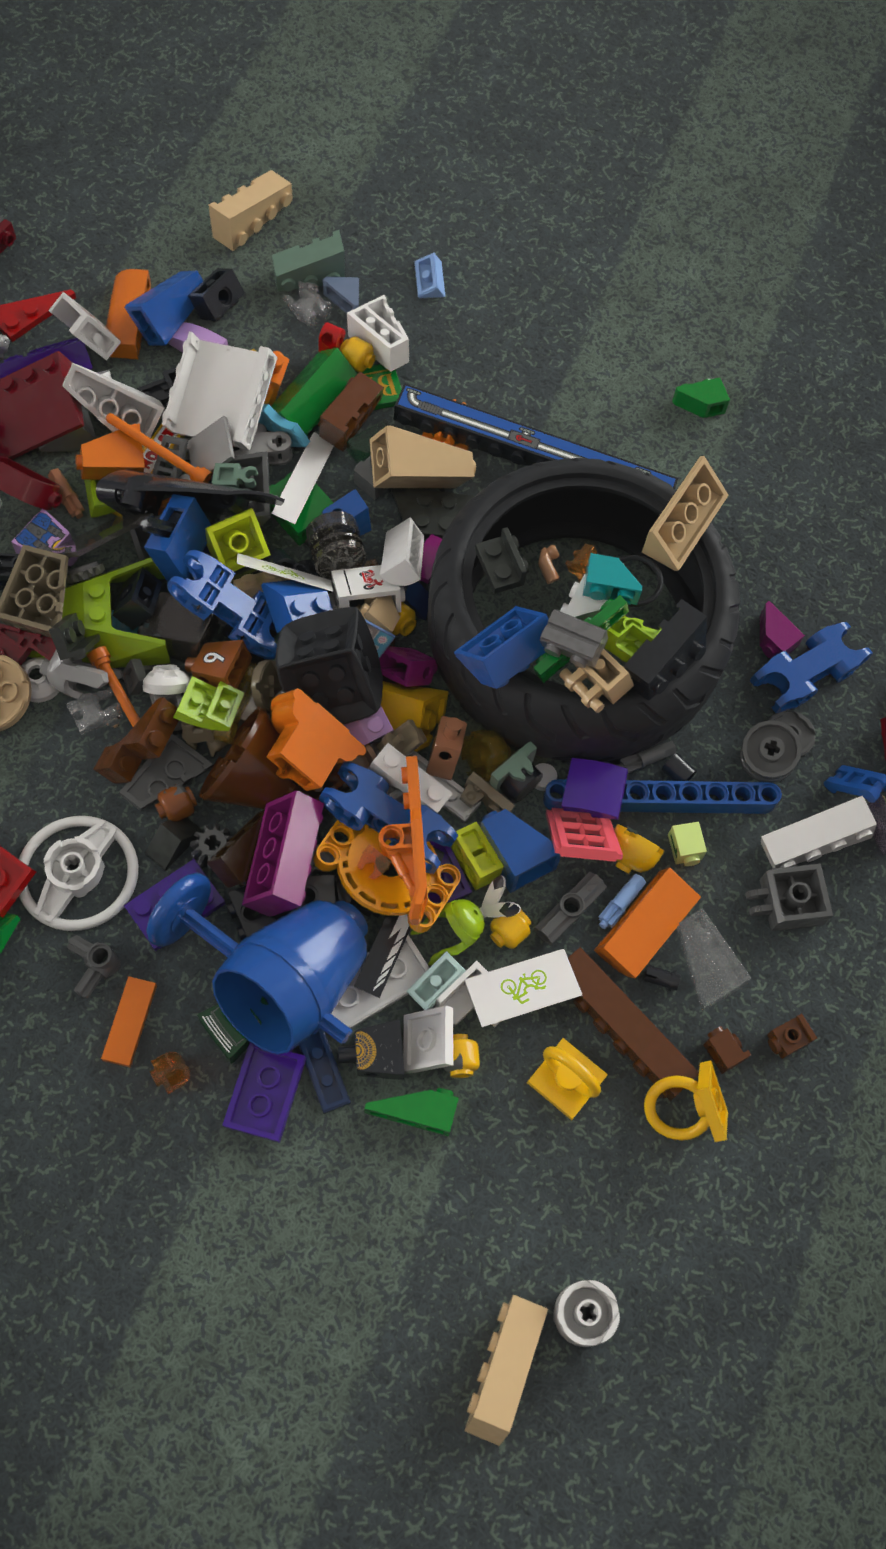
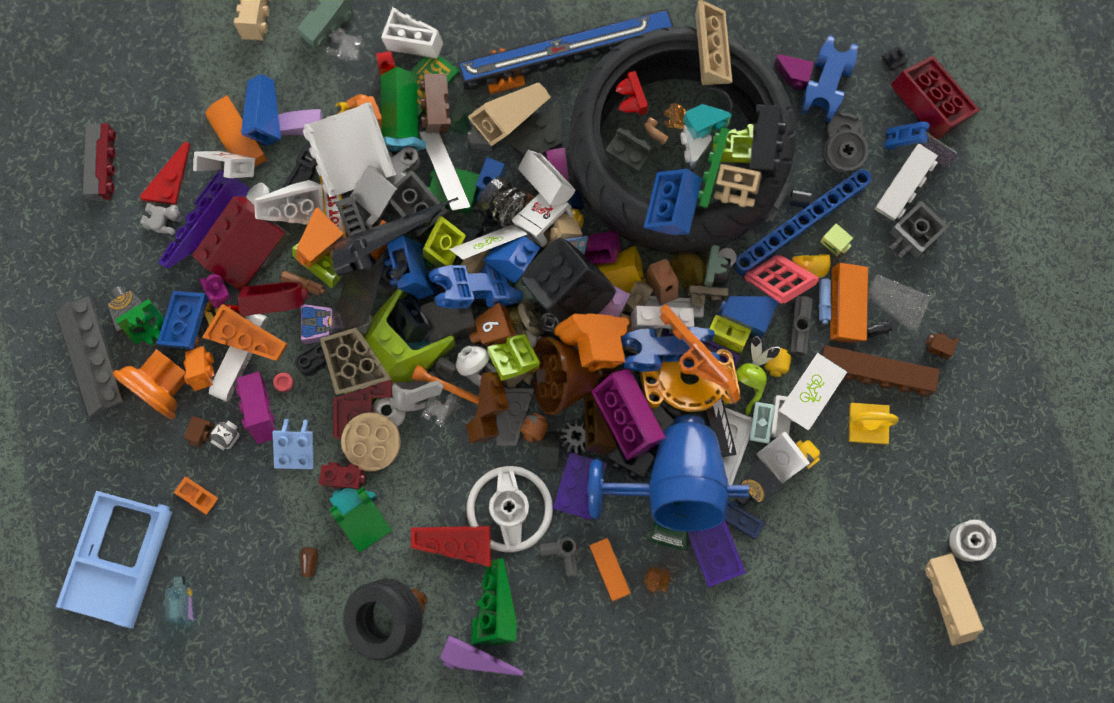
camera: 30 degrees left, 10 degrees up
(70, 638) = (403, 376): pearl dark grey bracket -> none
(196, 474) = (381, 215): orange piece -> none
(216, 294) = (284, 80): black brick -> none
(232, 475) = (403, 202): sand green plate -> none
(342, 291) = (363, 22): sand blue slope -> none
(358, 353) = (407, 59): yellow head -> none
(371, 855) = (689, 380): clear orange tile -> none
(423, 1110) = (809, 497): green slope -> none
(552, 520) = (637, 101): none -> red tile
(574, 639) = (715, 173): flat silver brick -> none
(594, 788) = (766, 246): dark purple slope -> none
(708, 1103) = (955, 382): yellow tile -> none
(801, 1032) = (970, 304): reddish brown brick -> none

